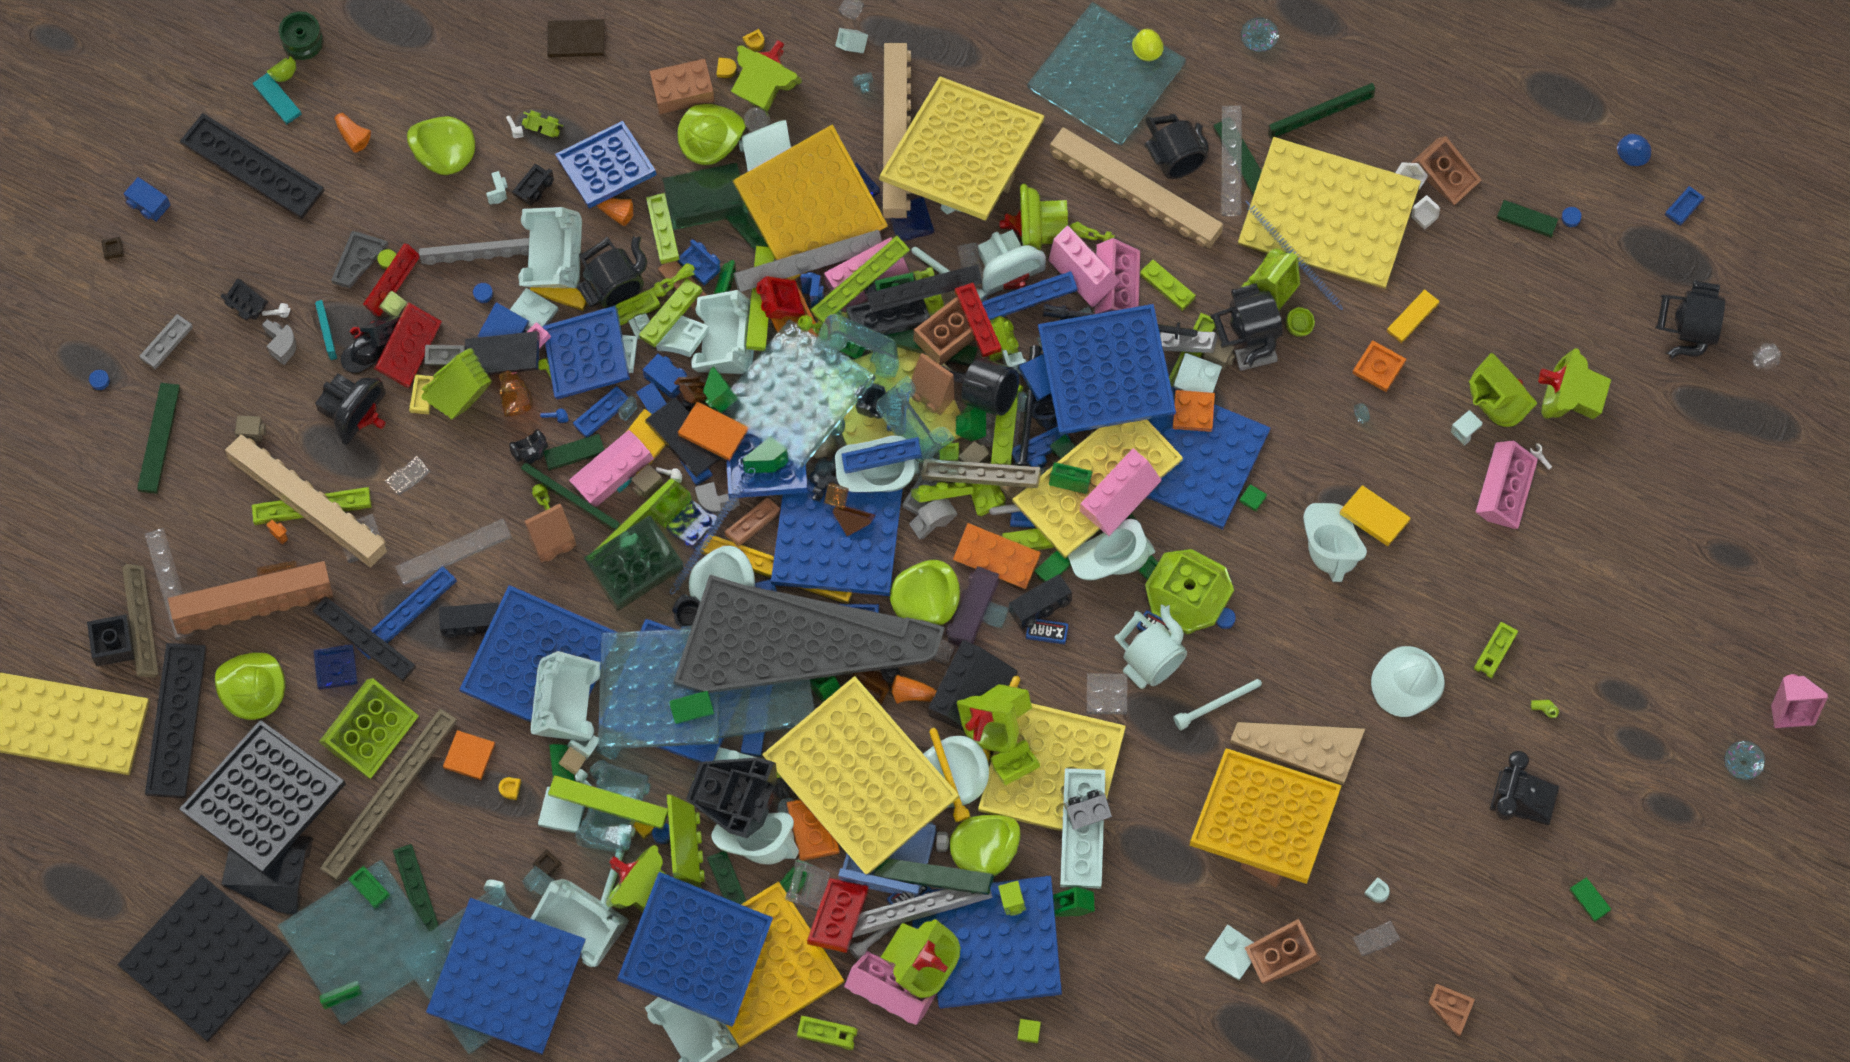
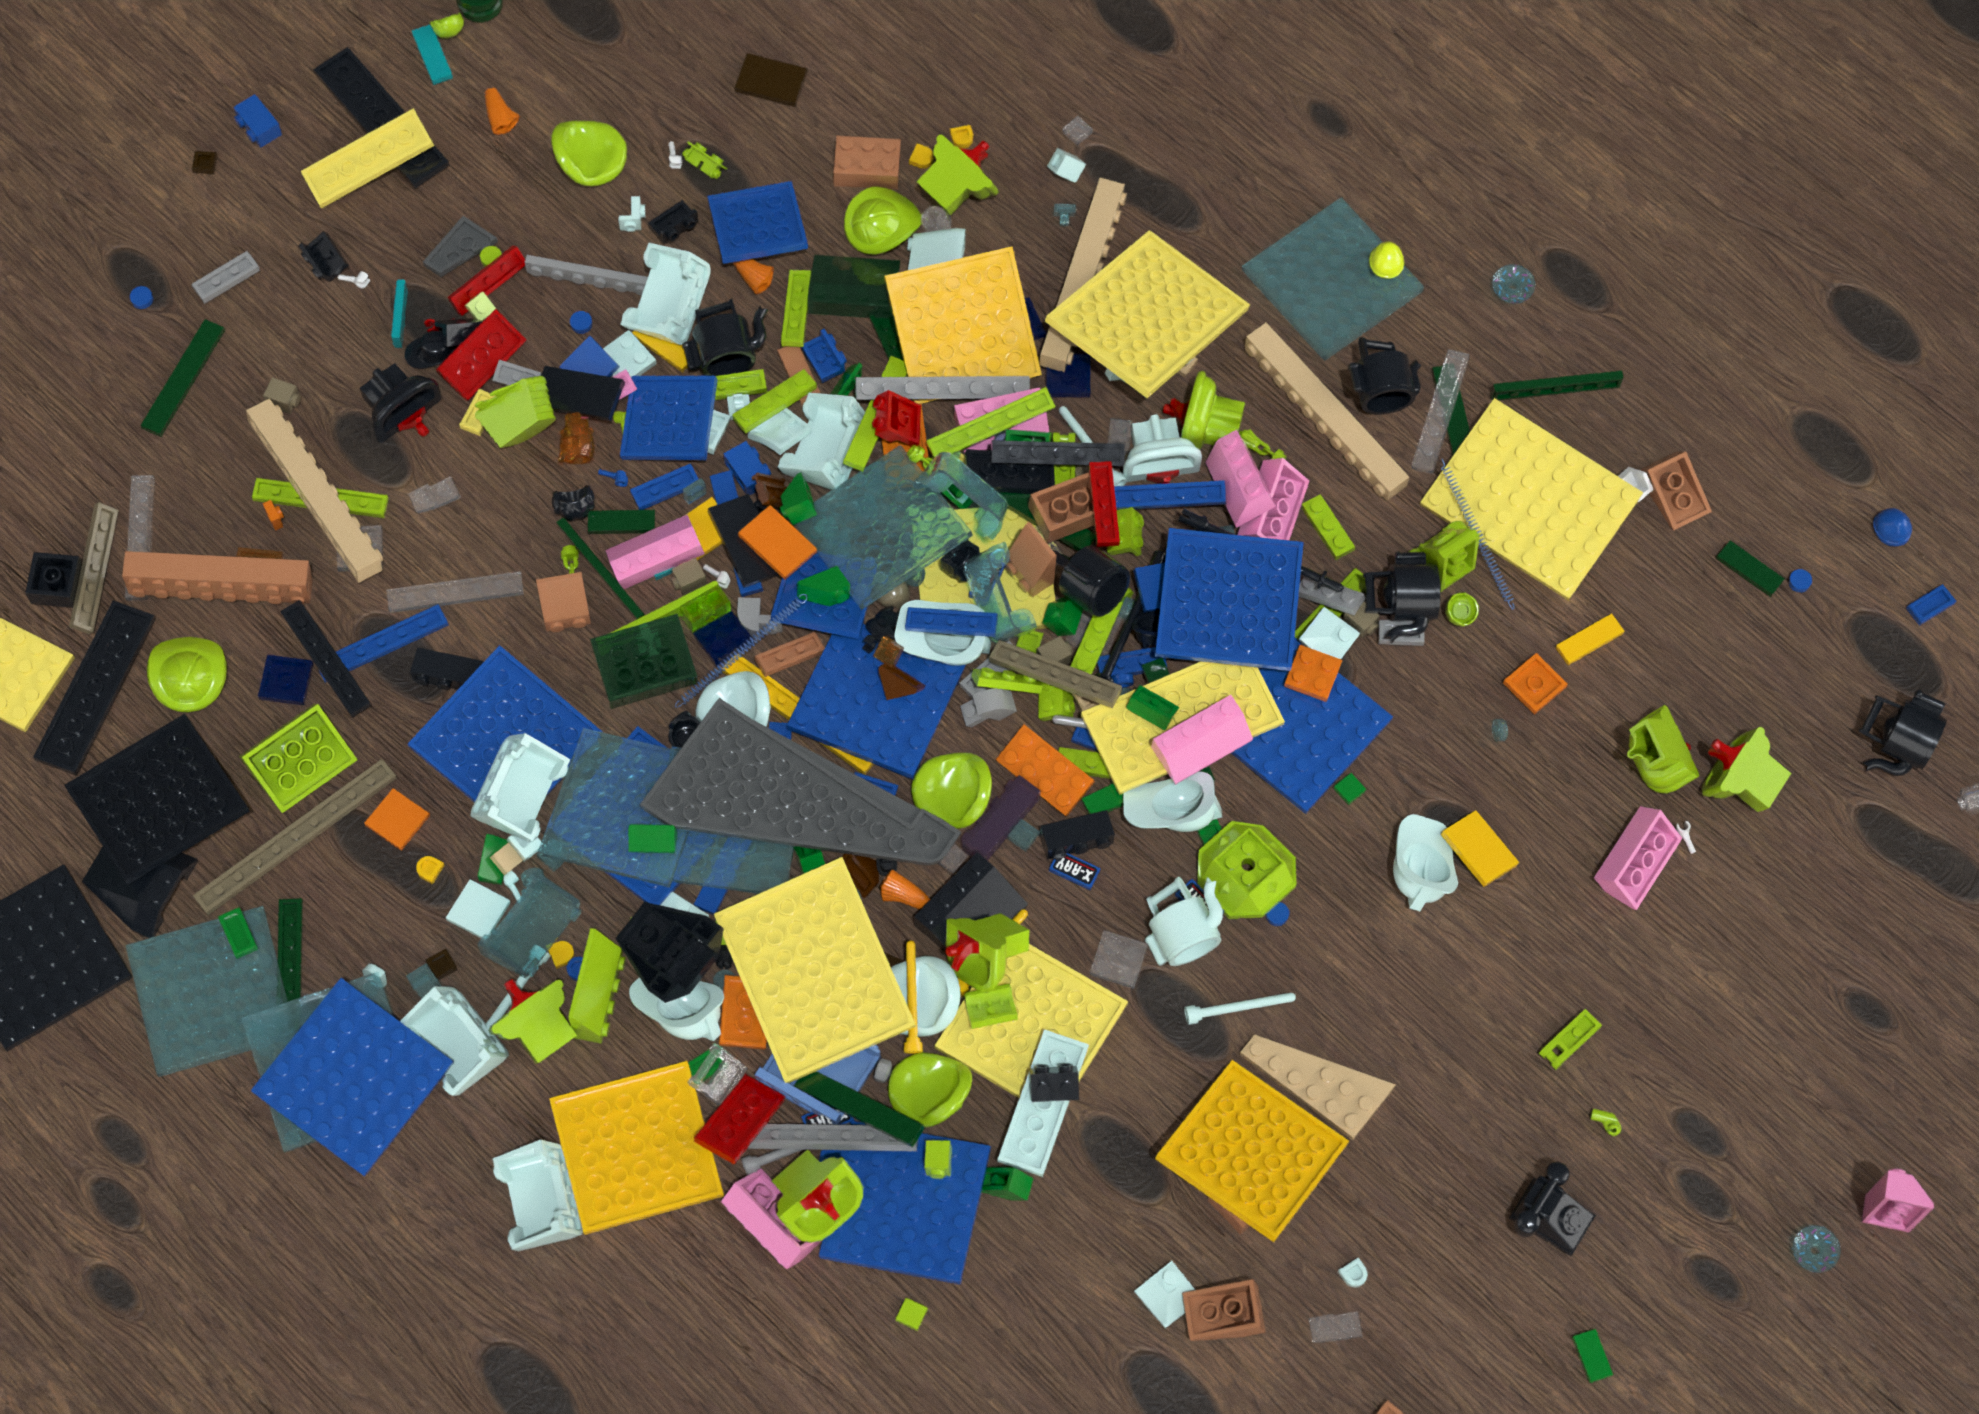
camera: 10 degrees right, 0 degrees up
(253, 205) = (367, 158): none -> light yellow plate
(283, 343) = (350, 313): light grey brick -> none
(340, 995) = (165, 1043): green slope -> none
(608, 802) = (527, 916): lime tile -> none
(686, 271) = (804, 361): lime piece -> none
(695, 949) = (566, 1110): blue plate -> none
(726, 877) = (632, 1042): dark green tile -> none
(812, 285) = (937, 417): blue bracket -> none
(826, 1032) = (685, 1247): lime plate -> none
(1013, 360) = (1131, 560): light aqua panel -> none
(1407, 681) = (1459, 1045): light aqua piece -> none
(1425, 212) = (1638, 529): white panel -> none
(1465, 427) = (1611, 779): light aqua panel -> none

